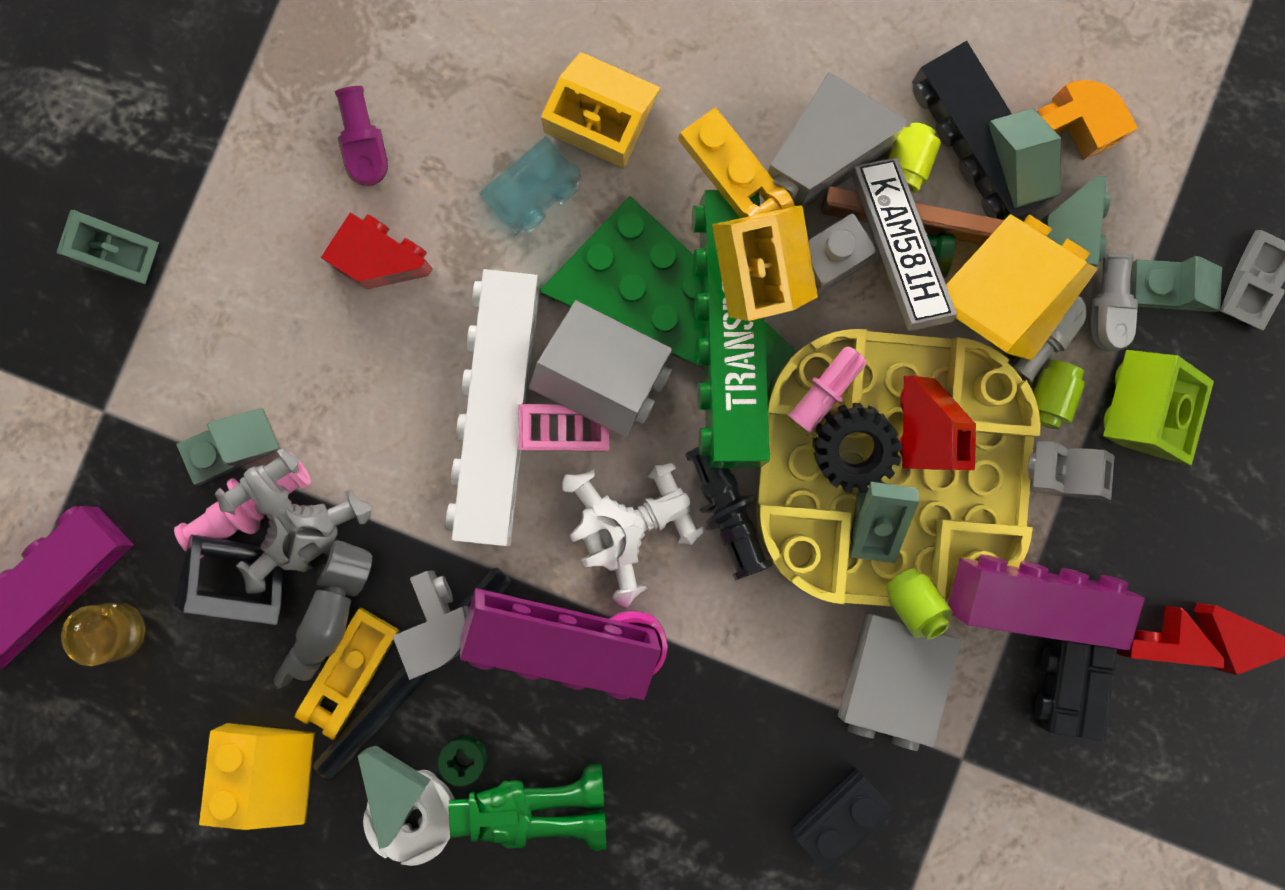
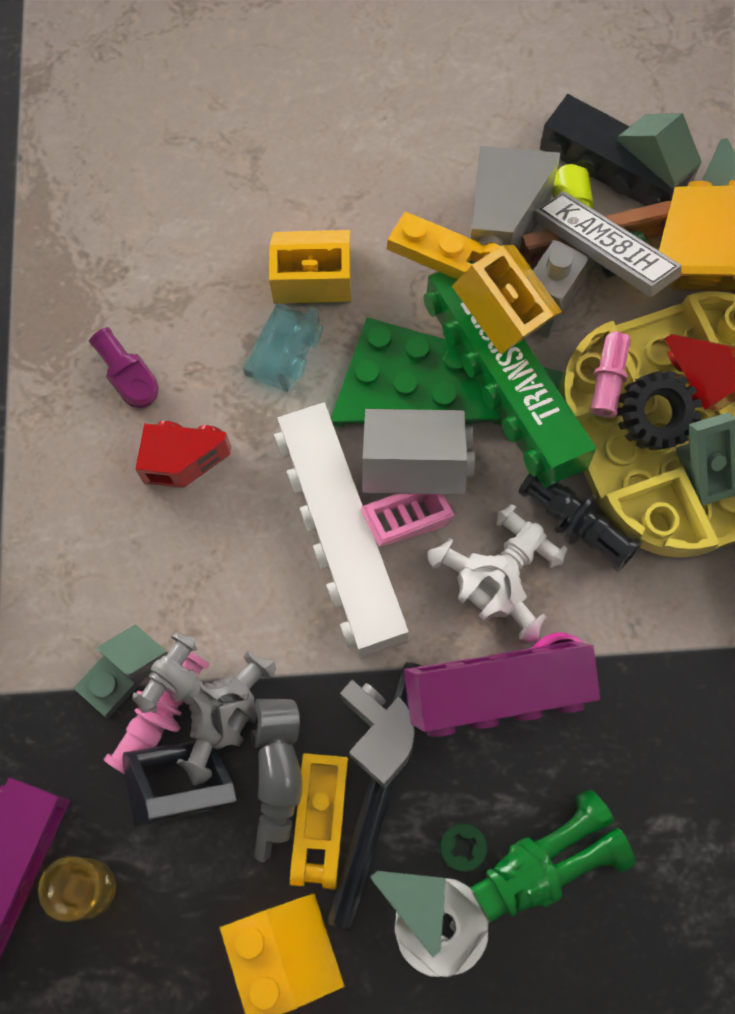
camera: 20 degrees left, 15 degrees down
(1091, 114) = (697, 101): light orange brick -> none

